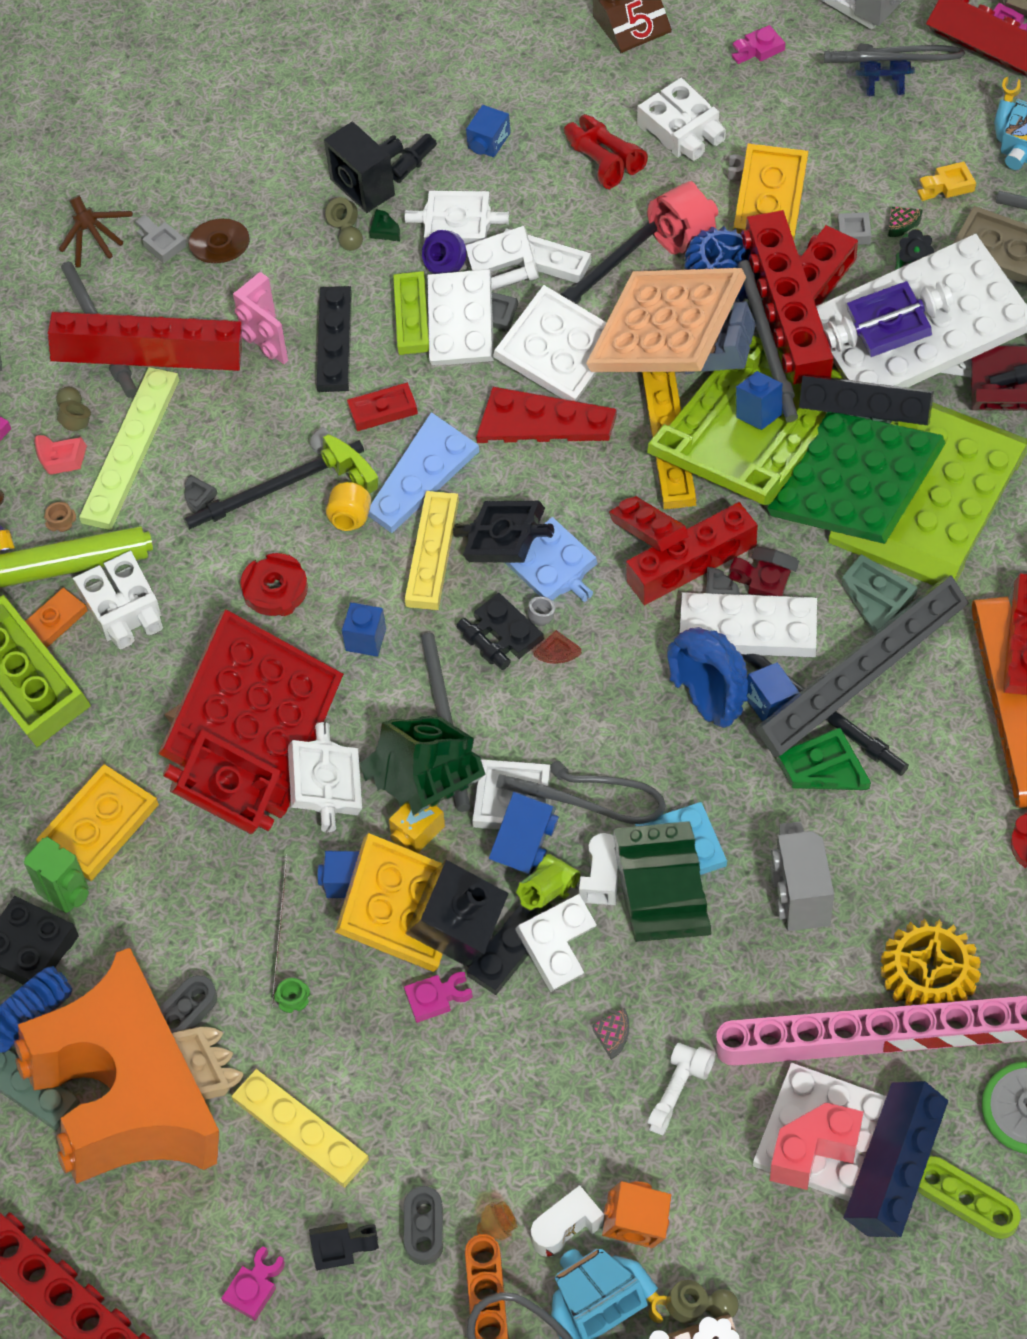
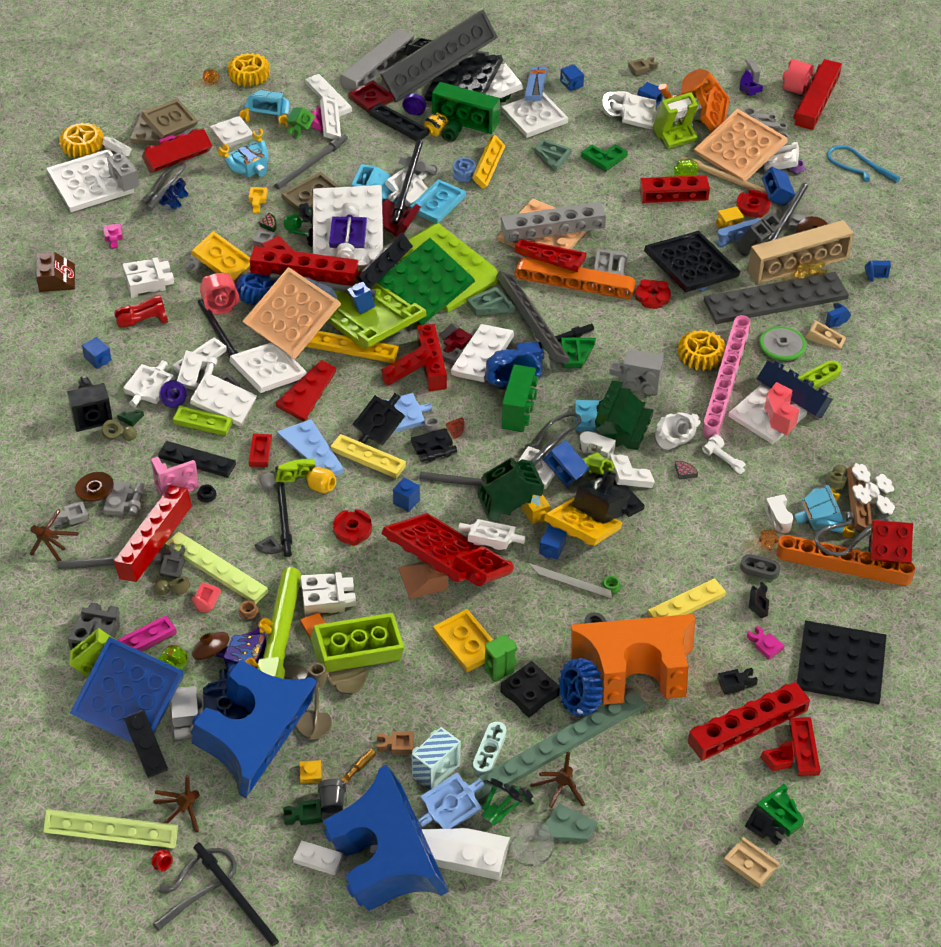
camera: 75 degrees left, 10 degrees down
(108, 390) = (173, 564): none -> dark grey plate
(144, 1254) = (733, 681): none -> black plate
(215, 279) = (117, 500): none -> light grey plate
(266, 370) = (206, 489): none -> black plate
(432, 998) = (635, 531): dark pink plate -> none
(636, 1214) = (787, 483): orange head -> none
(644, 709) = (519, 398): none -> green brick
(690, 983) = (676, 429): none -> white hair

